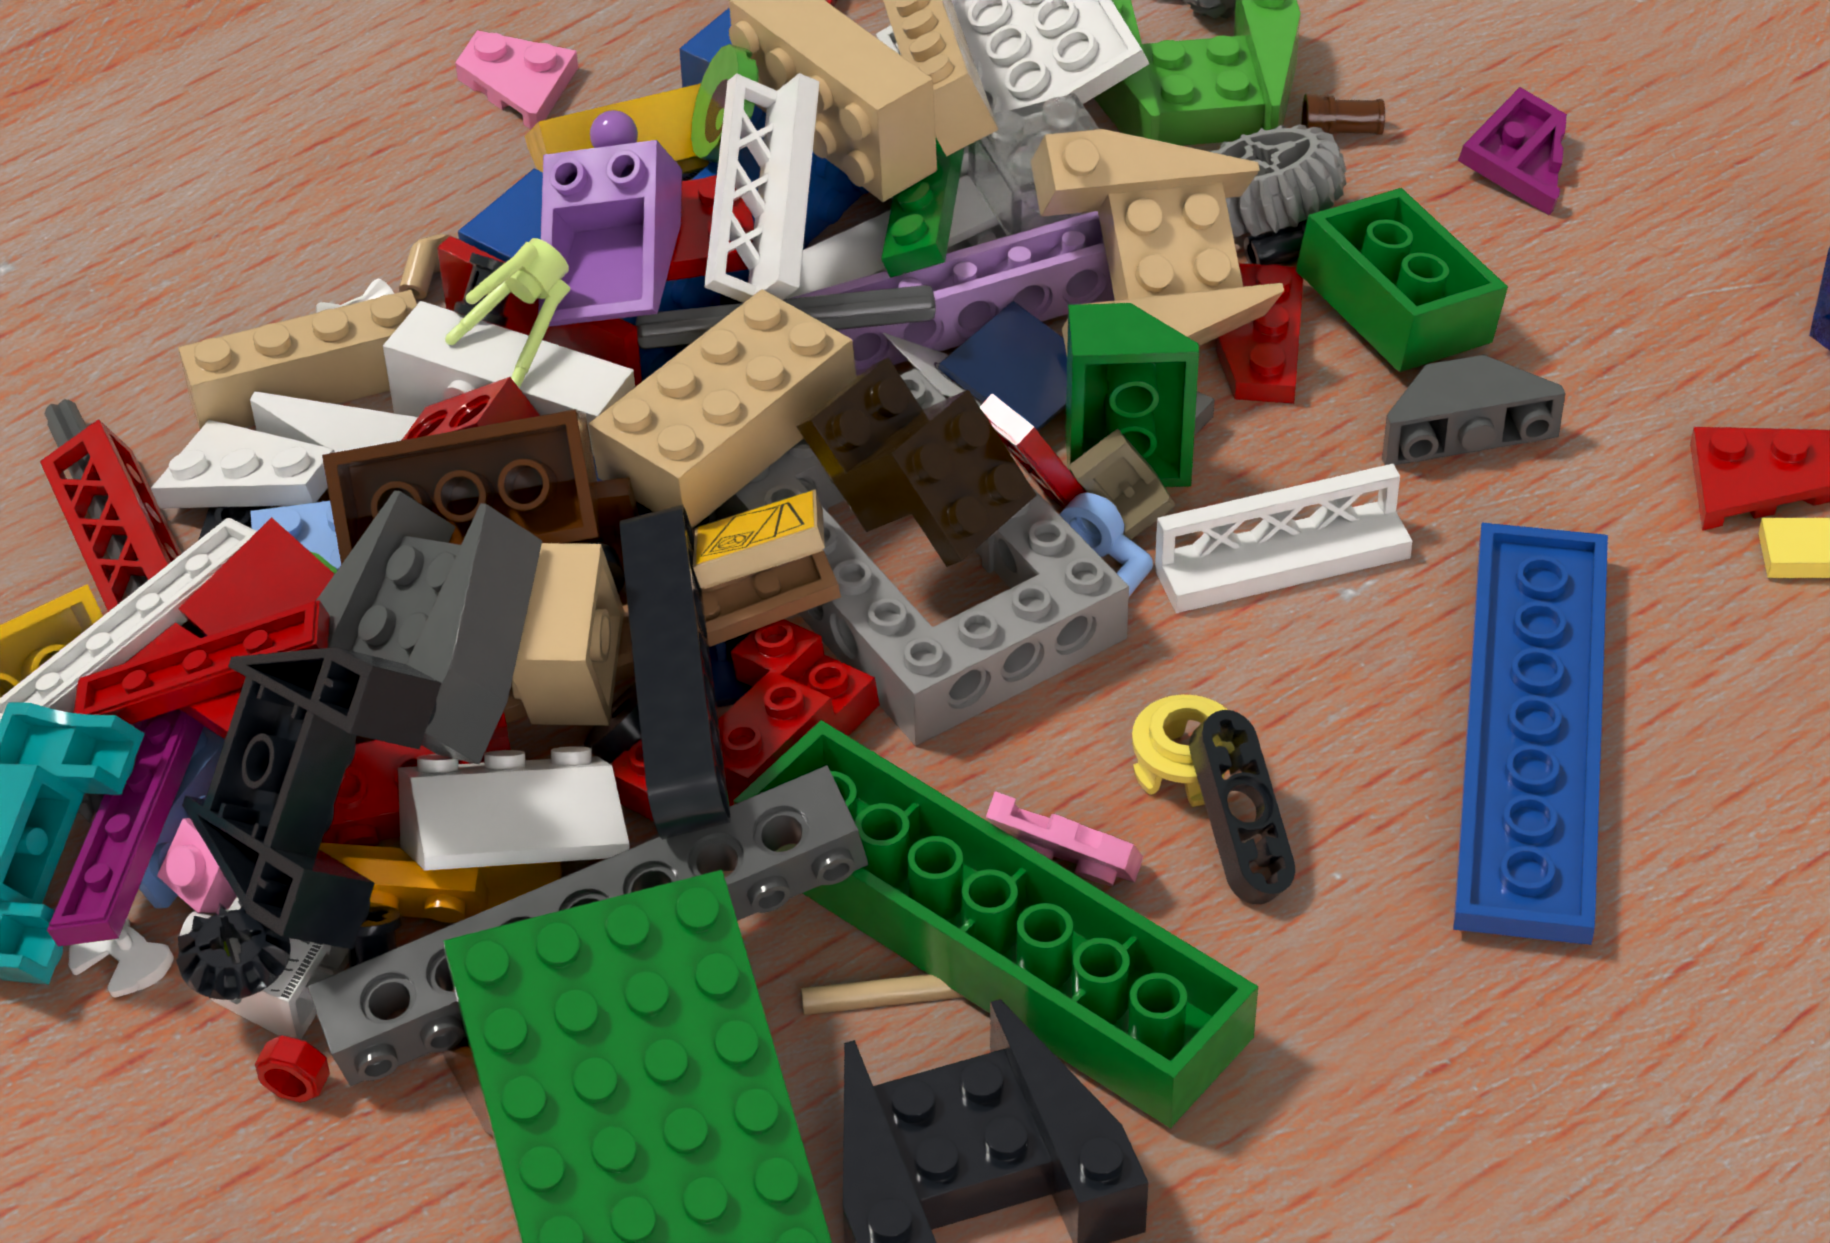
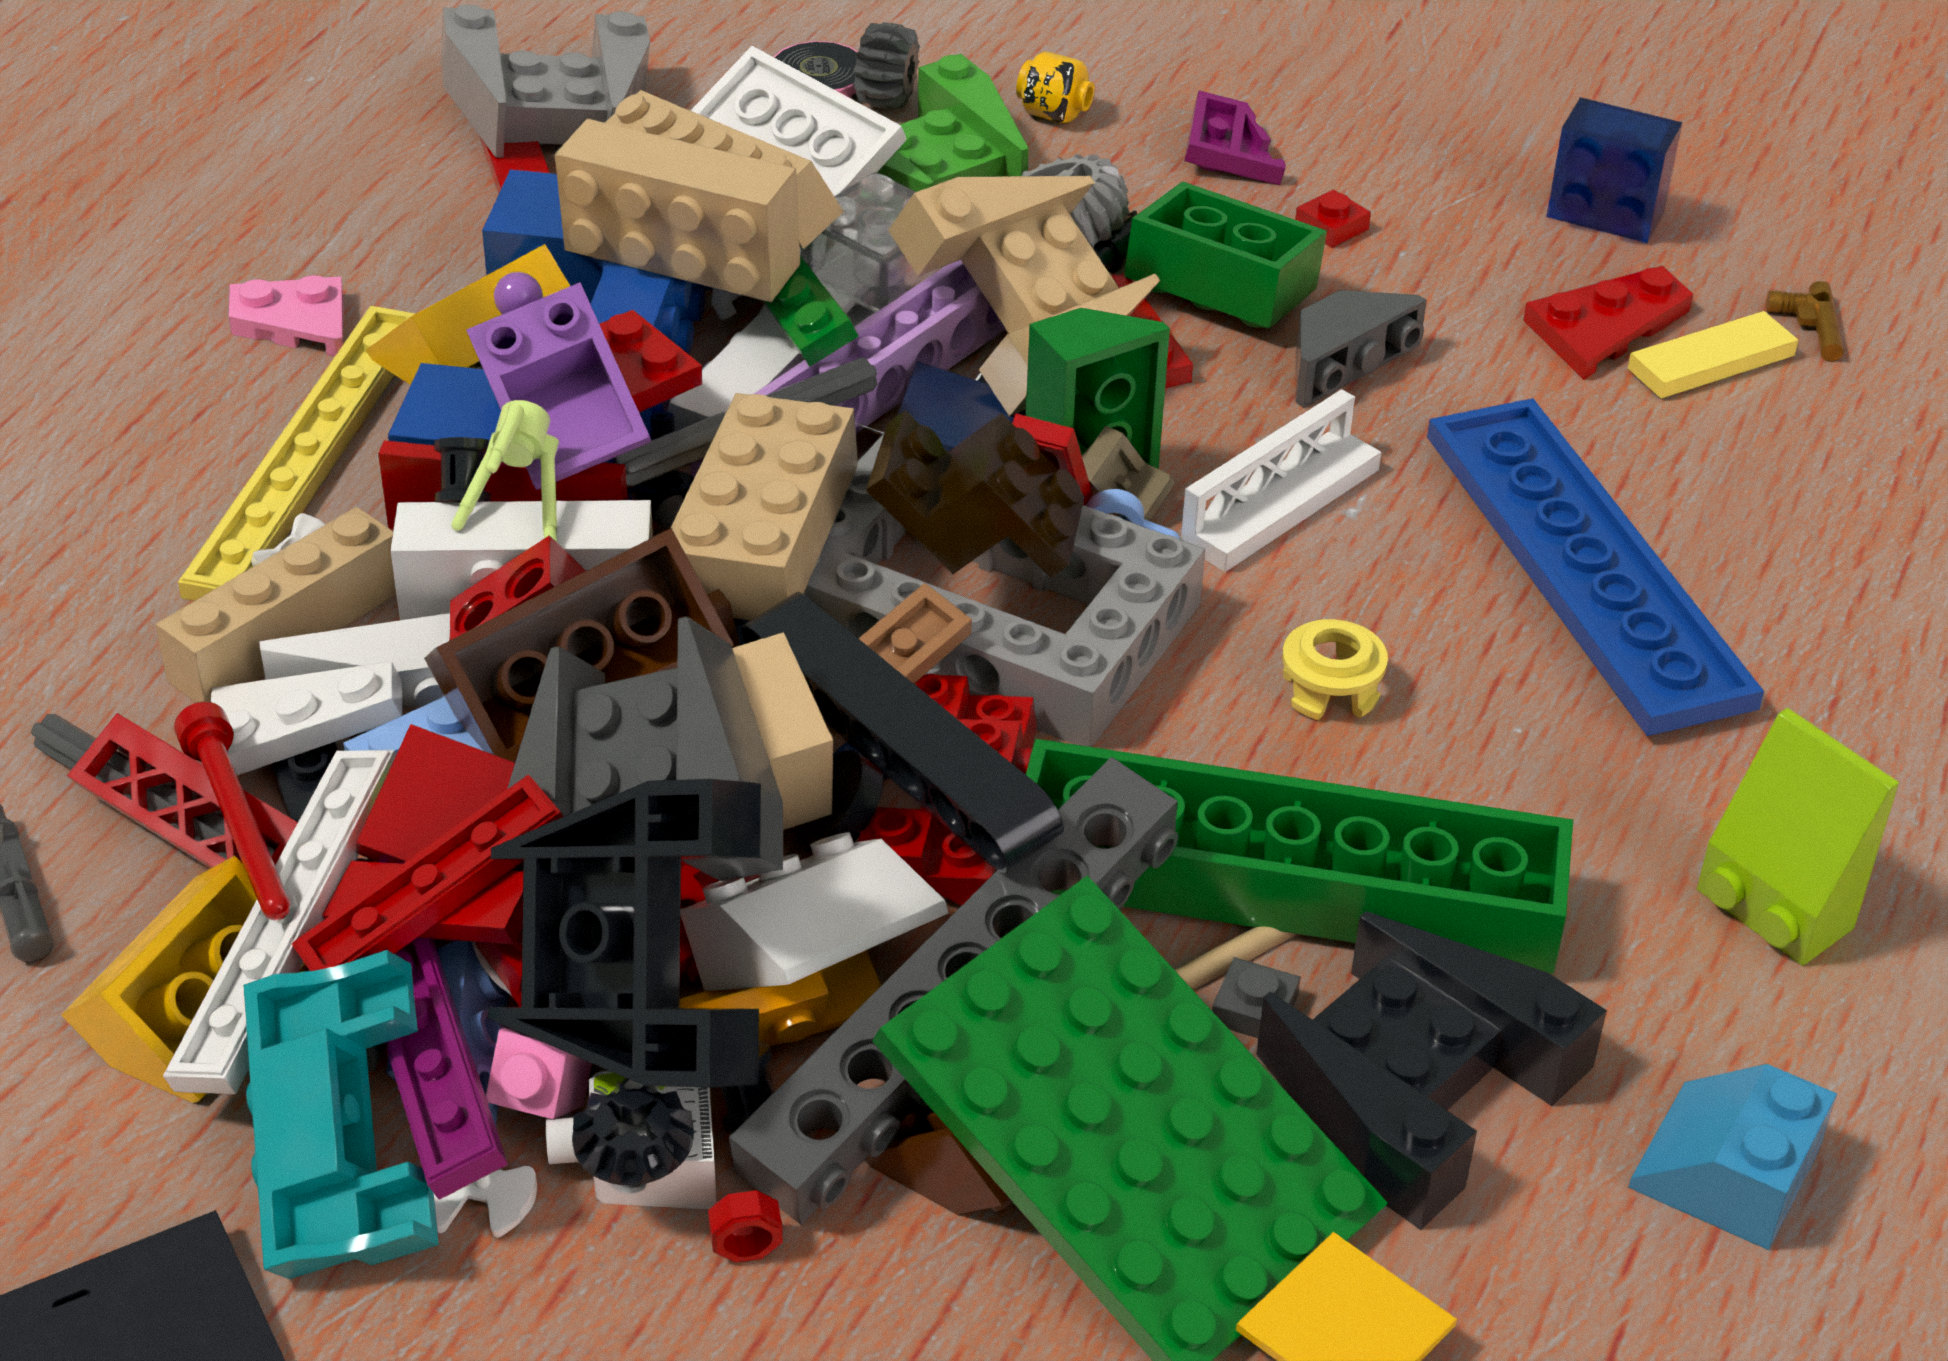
camera: 30 degrees left, 5 degrees down
(147, 467) = (206, 737): none -> red piece
(386, 246) = (297, 460): none -> light yellow tile
(421, 265) = (329, 483): tan arm -> none
(710, 100) = (586, 247): bright green tile -> none
(758, 539) = (890, 595): tile -> none
(782, 187) = (696, 305): white fence -> none
(883, 1039) = (1243, 991): none -> dark grey plate
(1096, 853) = (1309, 762): bright pink wing -> none
(1254, 781) = (1452, 723): black beam -> none
(1343, 115) = (1050, 148): reddish brown pin -> none
(1378, 41) = (1055, 87): none -> yellow head
(1462, 1097) = (1799, 839): none -> lime slope
(1568, 269) = (1335, 214): none -> red plate

